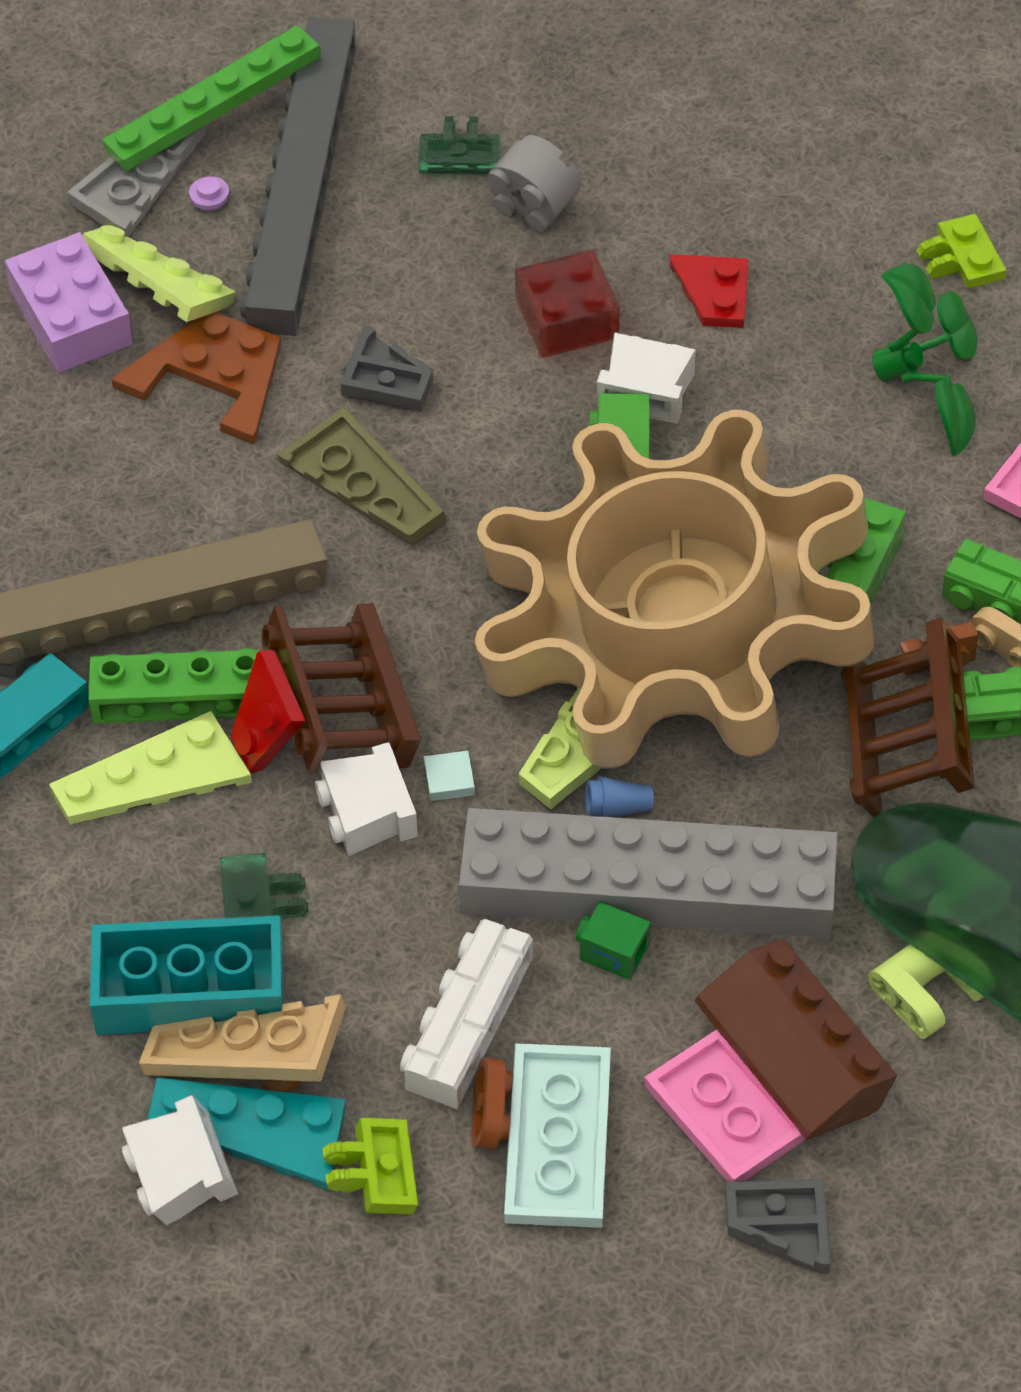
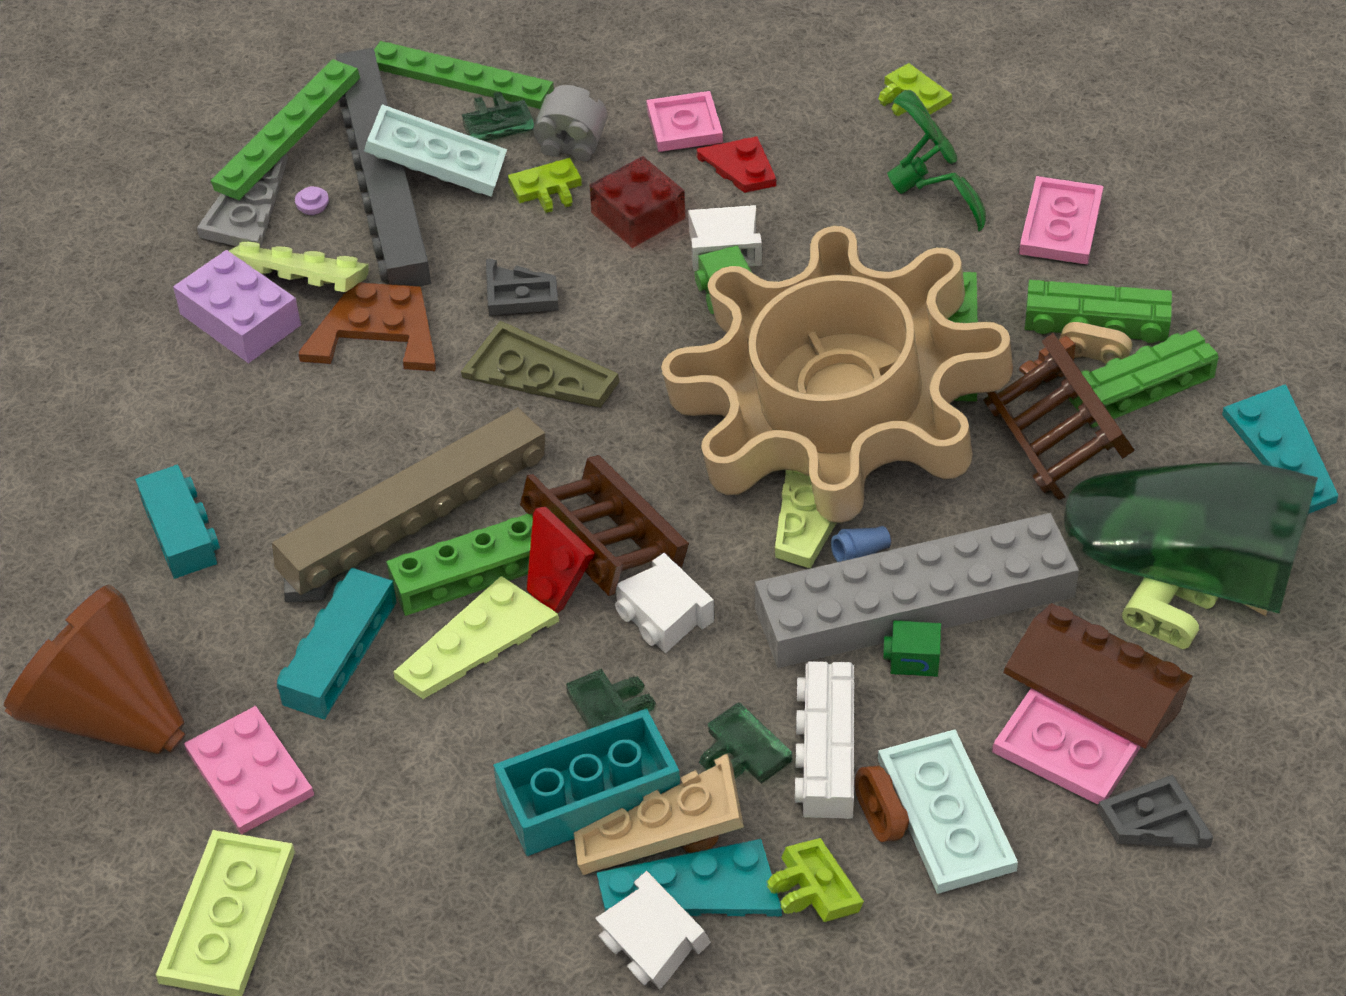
camera: 20 degrees left, 5 degrees down
(365, 173) = (435, 150): none -> light aqua plate
(384, 989) = (748, 742): none -> clear green hinge
(446, 79) = (461, 74): none -> bright green plate
(449, 775) = (717, 567): light aqua tile -> none
(480, 245) = (544, 181): none -> lime hinge
(673, 214) = (684, 121): none -> bright pink plate

